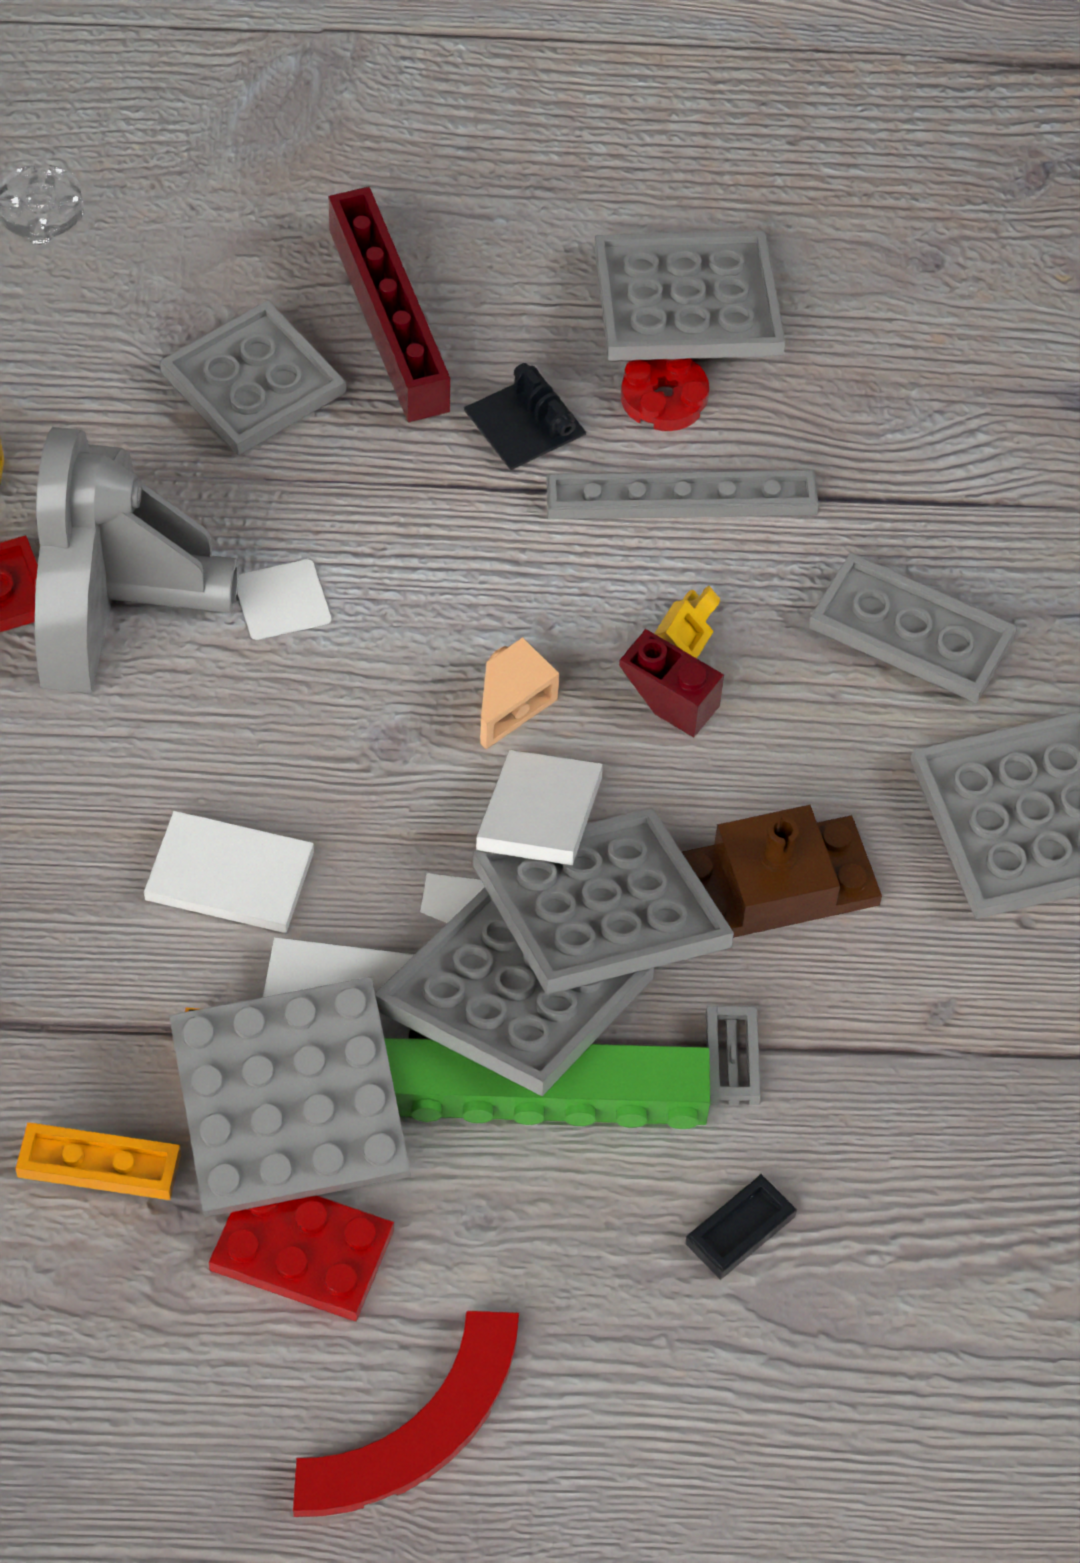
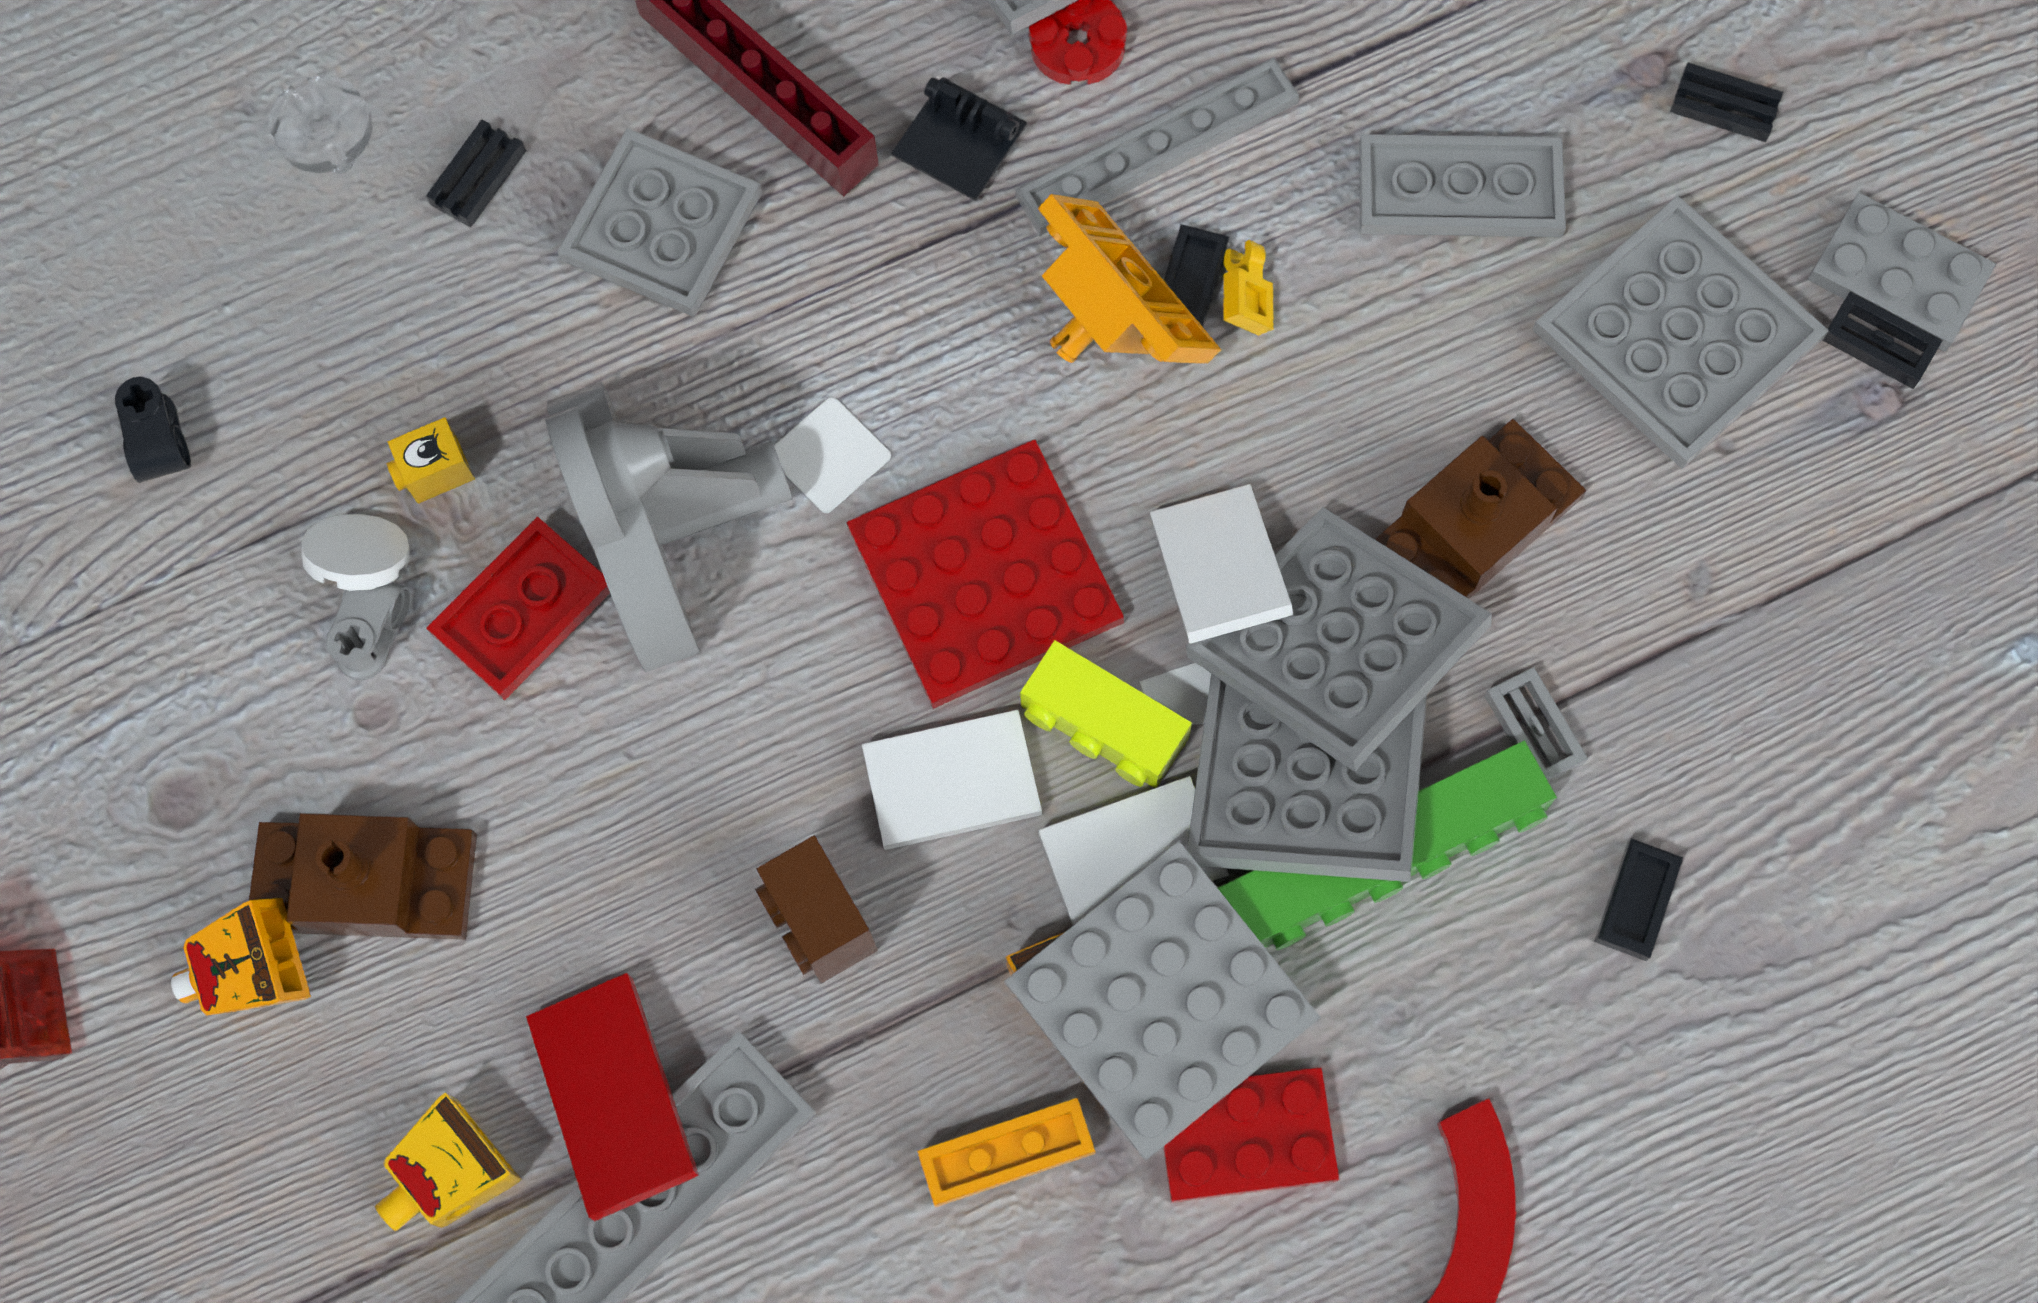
camera: 20 degrees left, 15 degrees up
(56, 904) = (815, 905): none -> reddish brown brick
(131, 280) = (461, 163): none -> black tile
(350, 737) = (984, 573): none -> red plate
(379, 878) = (1104, 716): none -> neon yellow brick
(515, 690) = (1118, 444): light nougat slope -> none
(573, 568) = (1115, 291): none -> light orange brick
(648, 599) = (1196, 268): none -> black tile
(673, 682) = (1270, 362): dark red slope -> none

